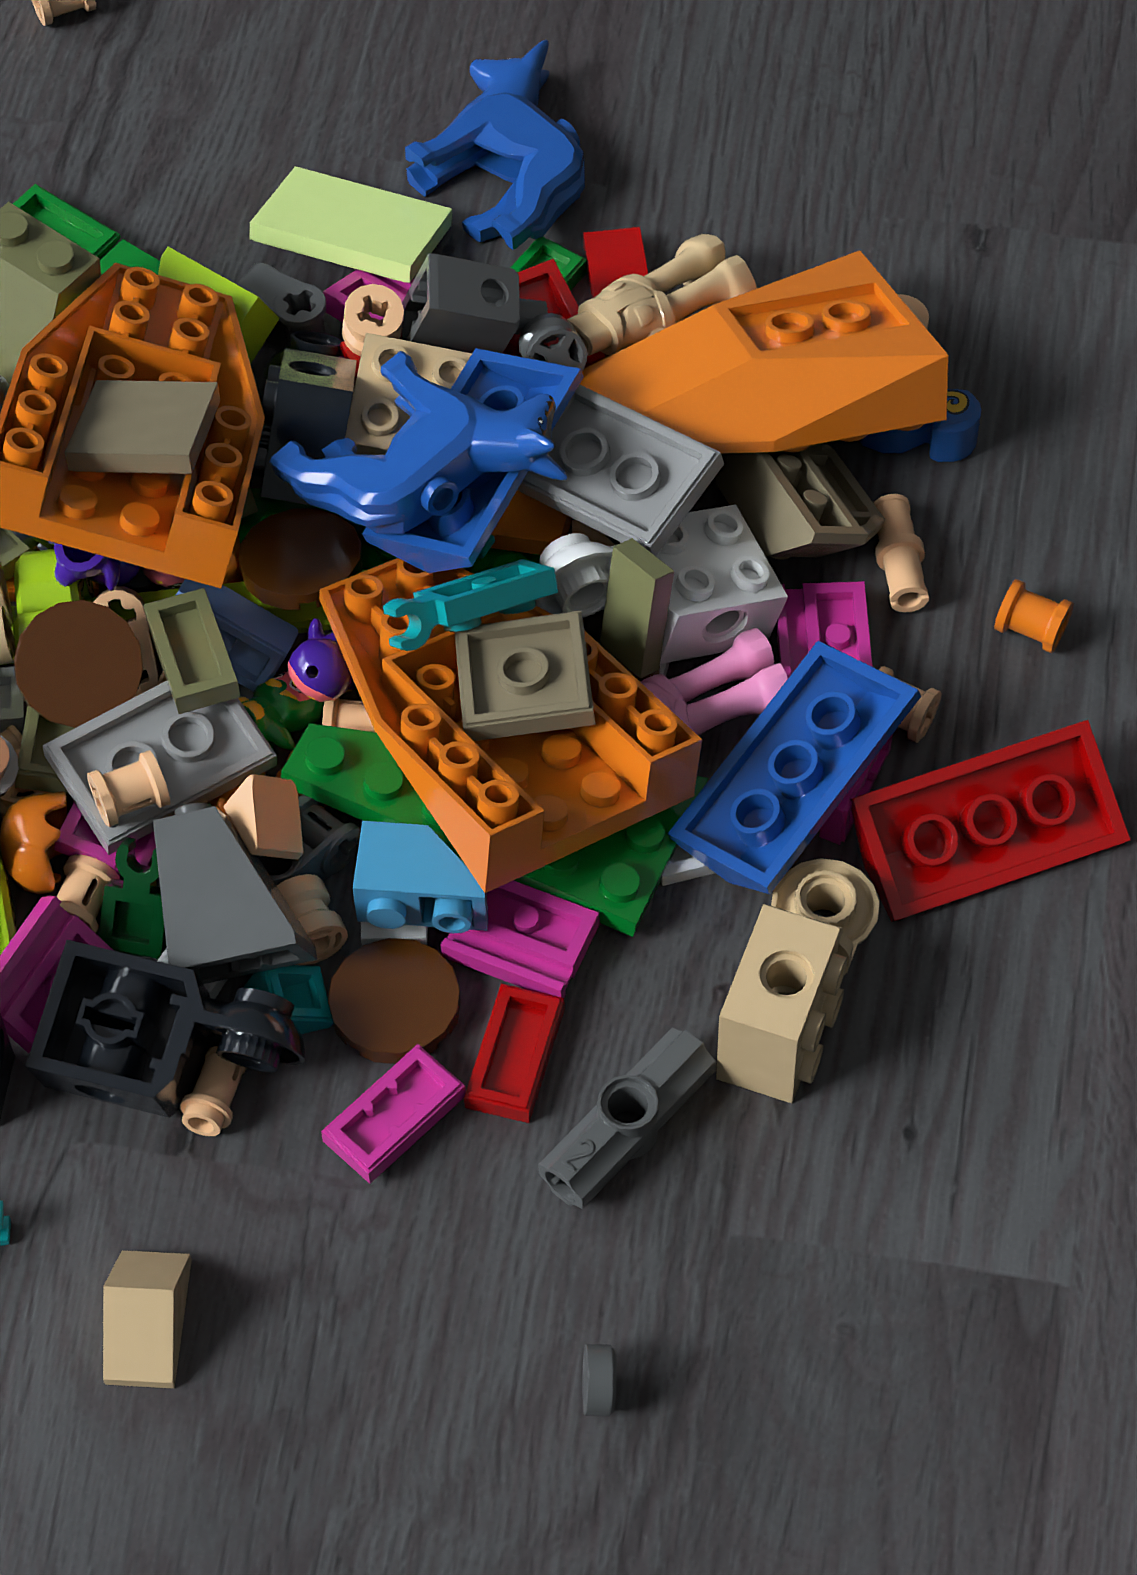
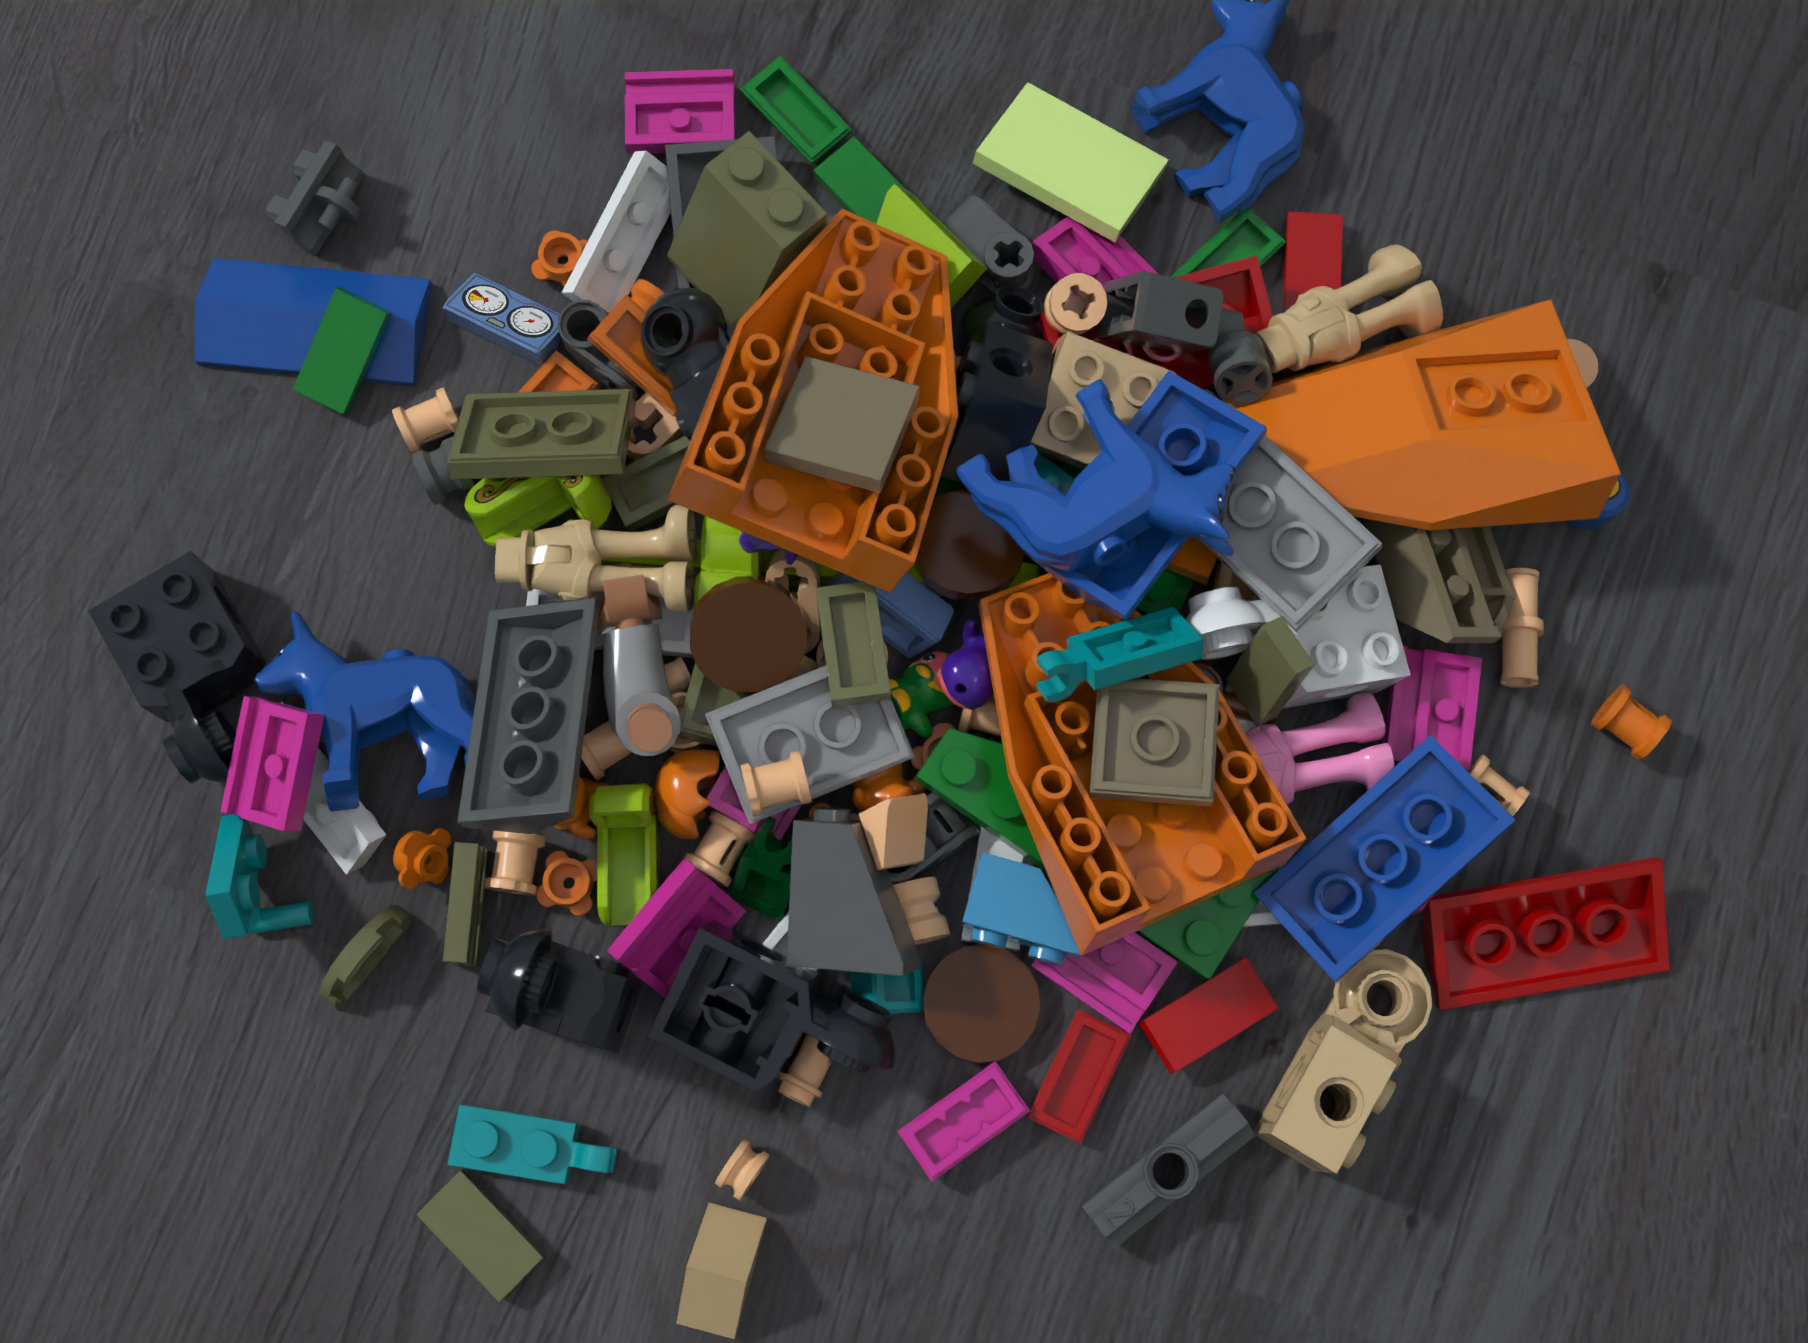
camera: 10 degrees right, 20 degrees up
(154, 1202) = (742, 1169): none -> light nougat bush
(641, 963) = (1208, 1015): none -> red slope

